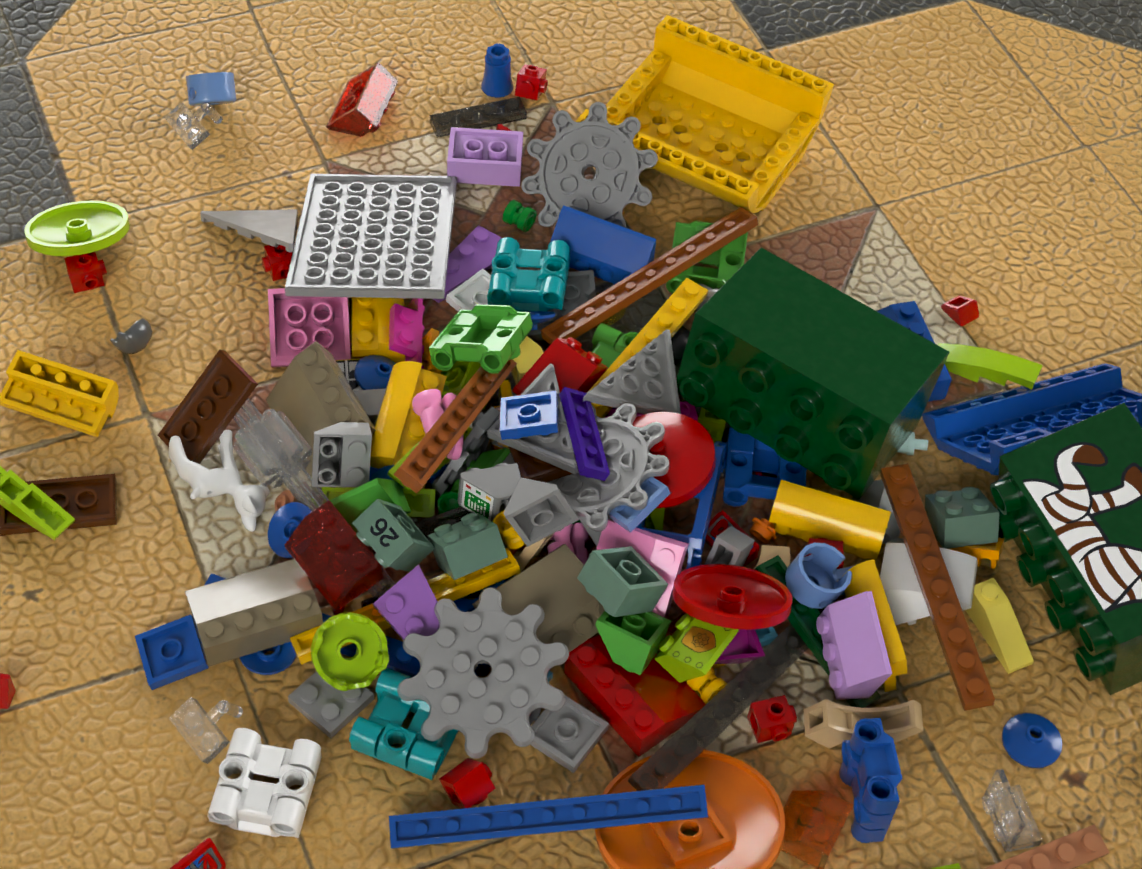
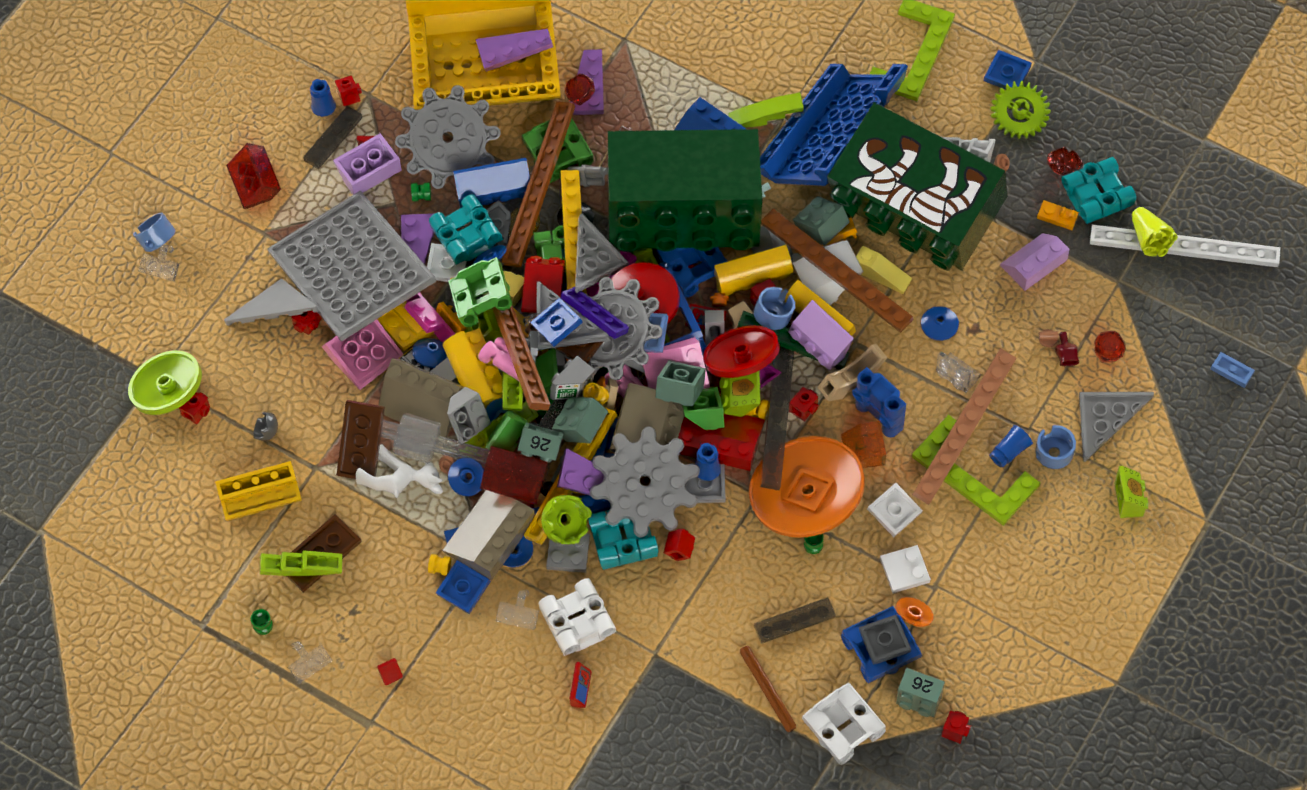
camera: 30 degrees left, 10 degrees up
(166, 604) = (439, 564): none -> yellow wheel
(538, 510) = (609, 374): light grey slope -> none
(548, 816) = (735, 532): blue plate -> none
(584, 706) = (708, 462): none -> blue plant
(739, 135) = (508, 48): none -> medium lavender wing
(780, 216) = (579, 89): none -> clear red hair
(795, 227) = (592, 67): none -> medium lavender wing
(961, 309) = (725, 81): red slope -> none

